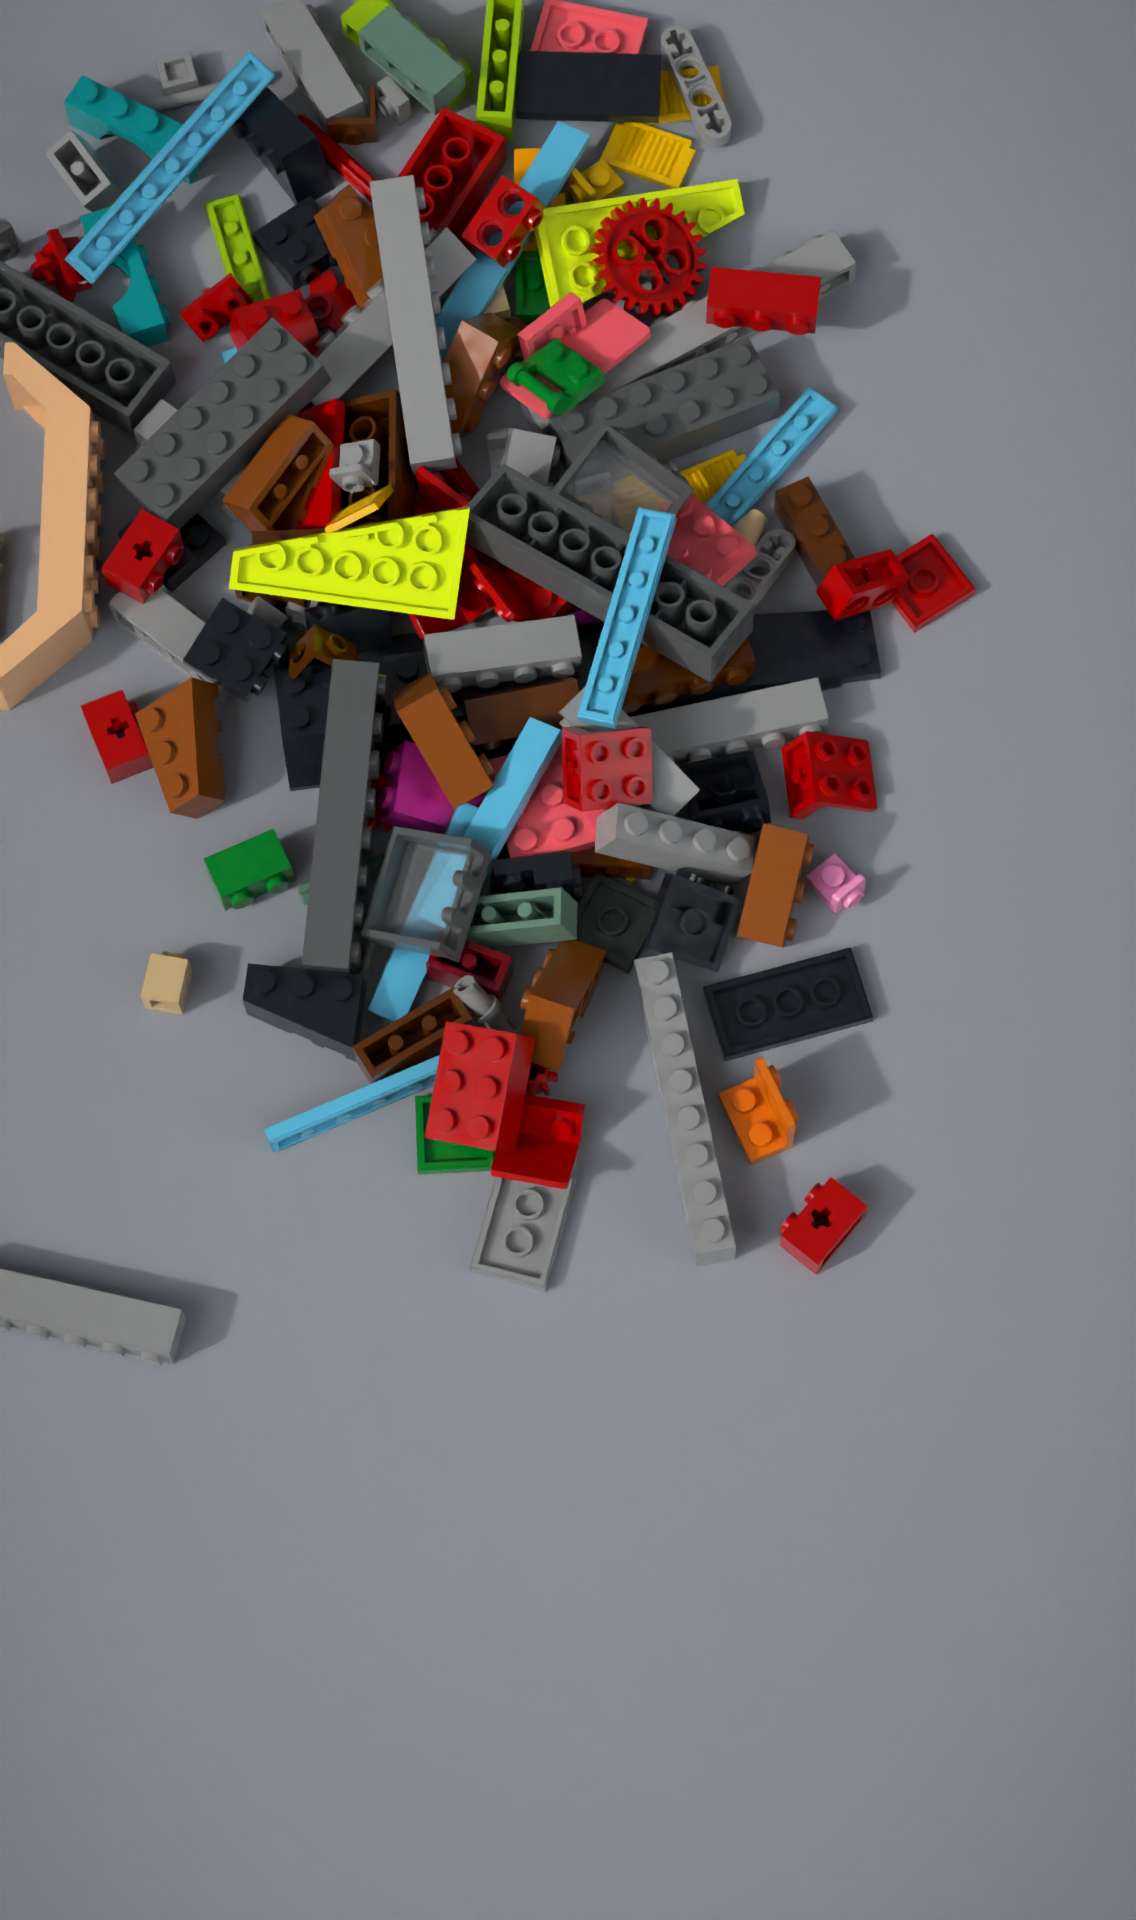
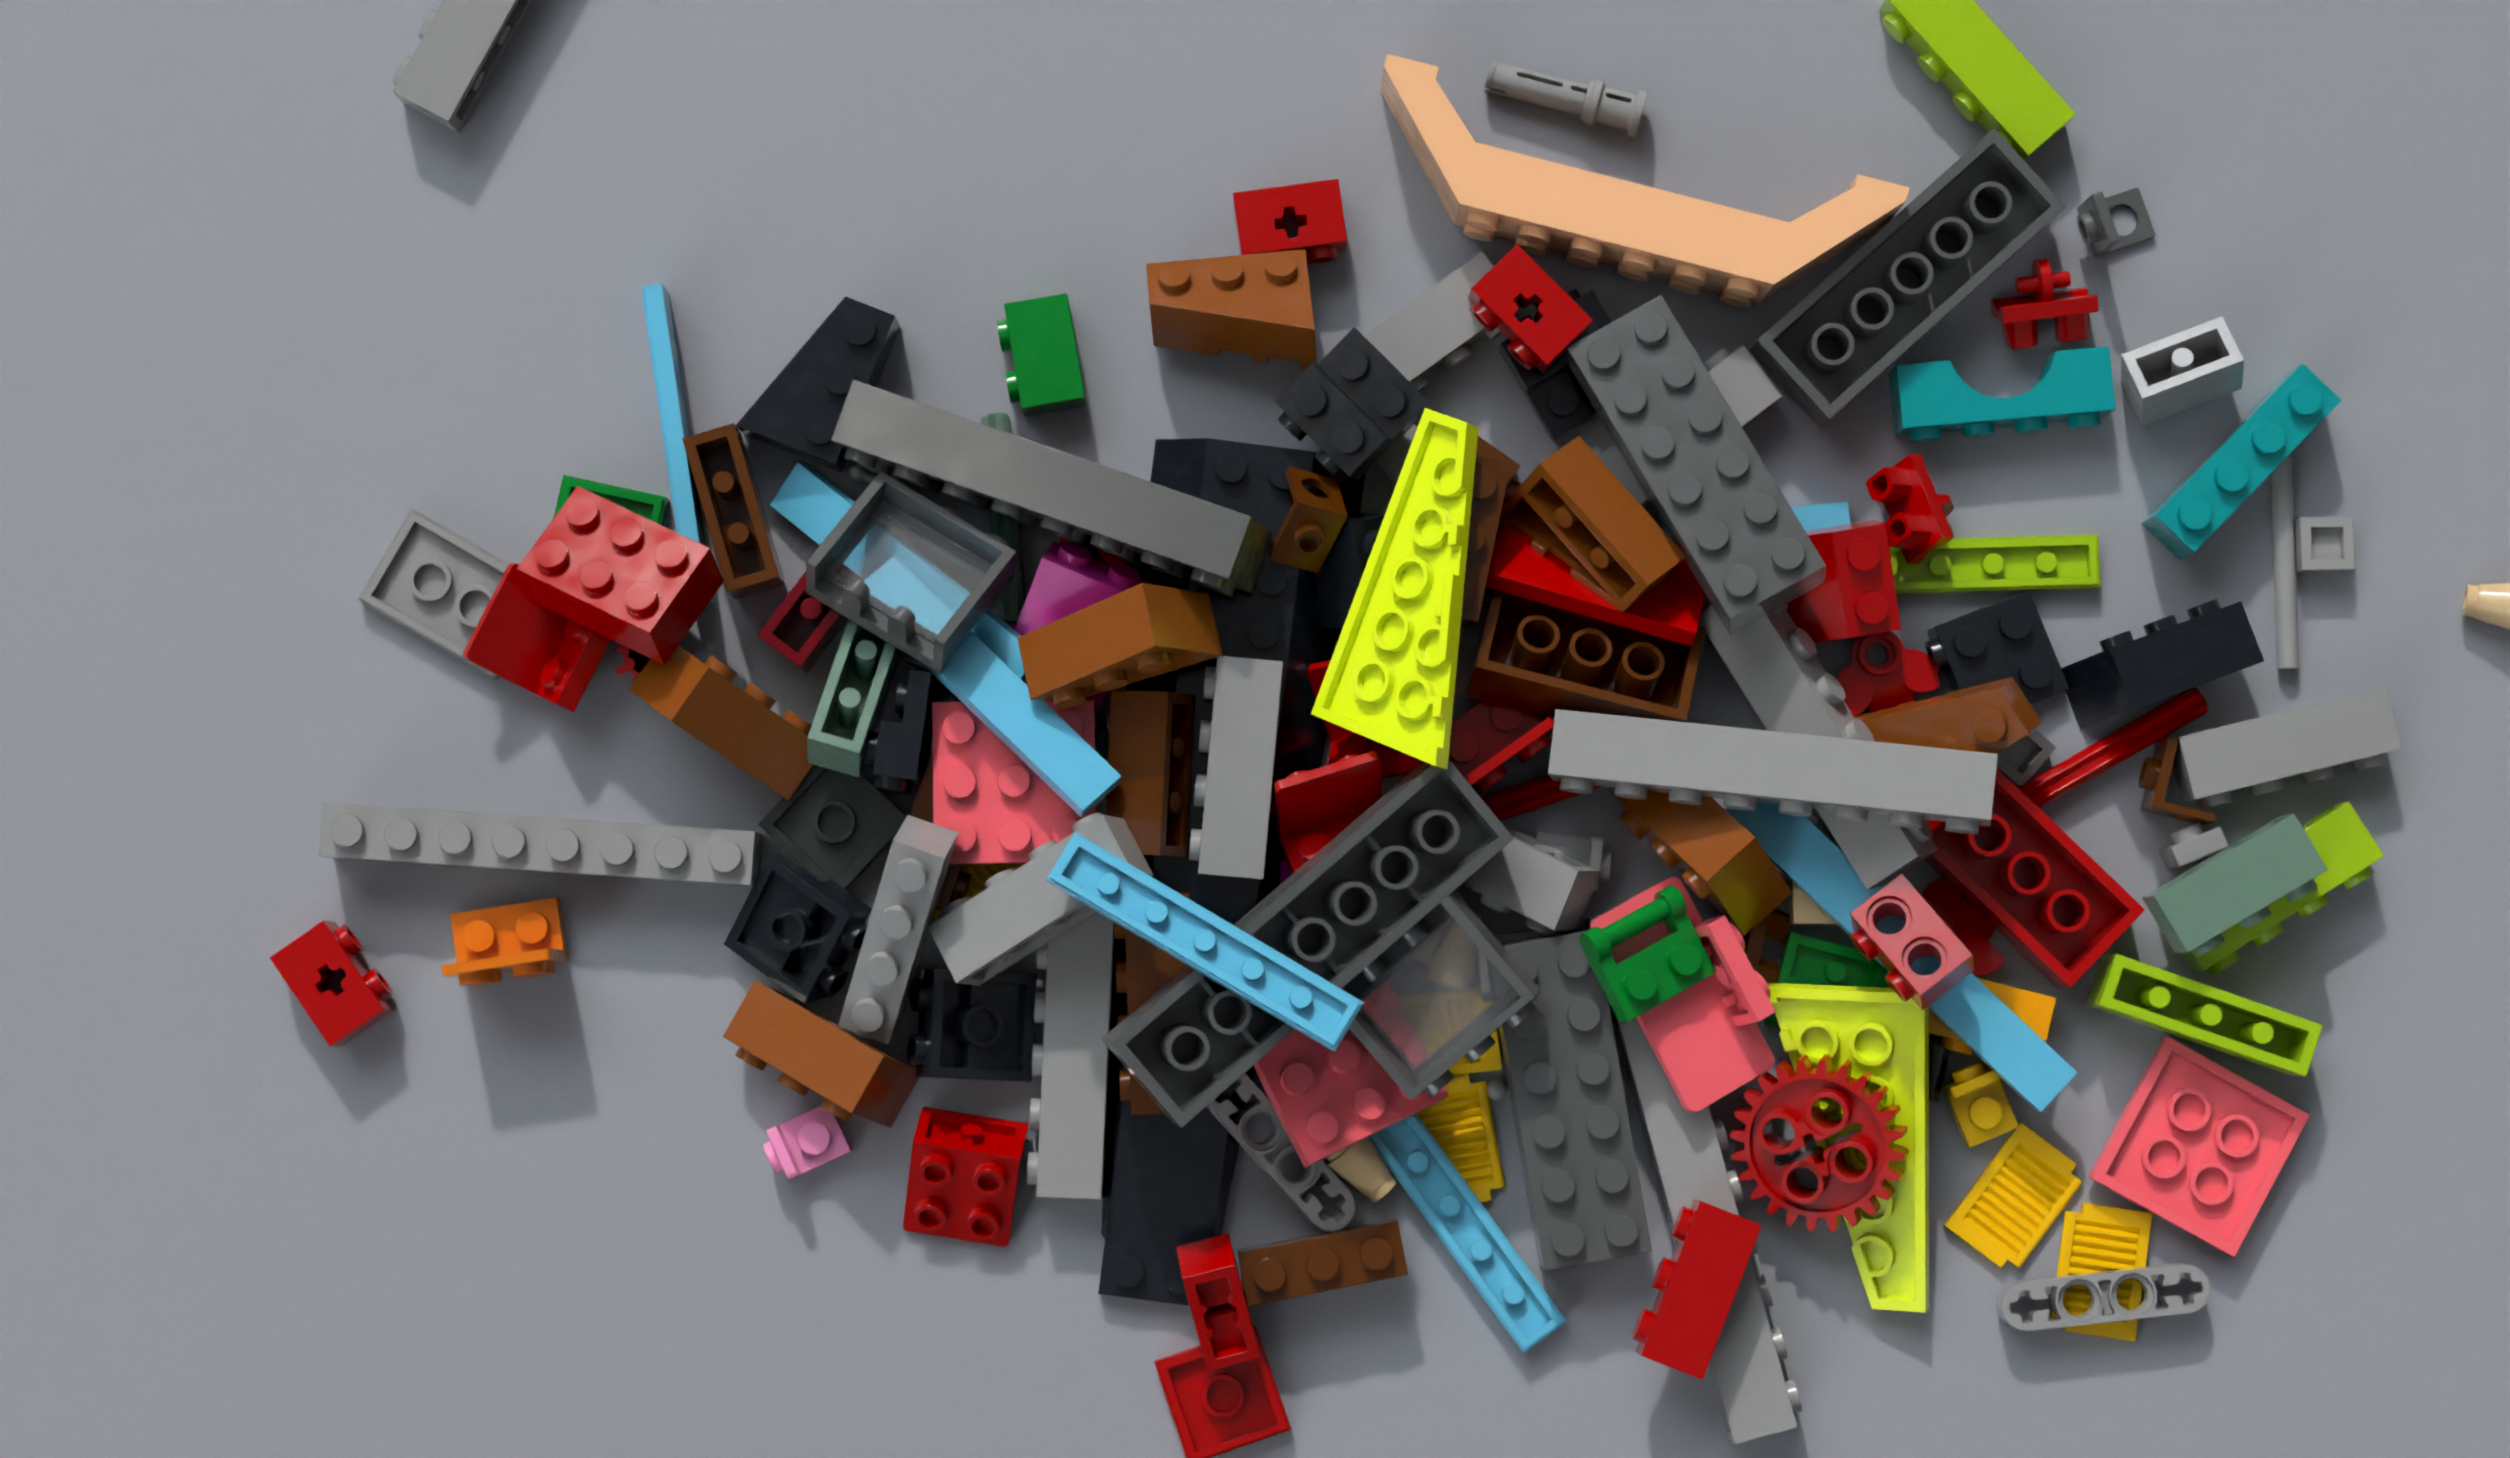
camera: 100 degrees right, 15 degrees up
(166, 982) = (914, 208): tan brick -> none
(169, 167) = (2148, 491): medium azure tile -> none
(357, 465) = (1581, 638): light grey bracket -> none
(359, 509) = (1493, 617): yellow window -> none
(484, 1006) = (747, 616): light grey pin -> none
(588, 87) = (2135, 1136): black tile -> none
(607, 767) = (1001, 857): red bracket -> none
(787, 1004) = (658, 1027): black tile -> none

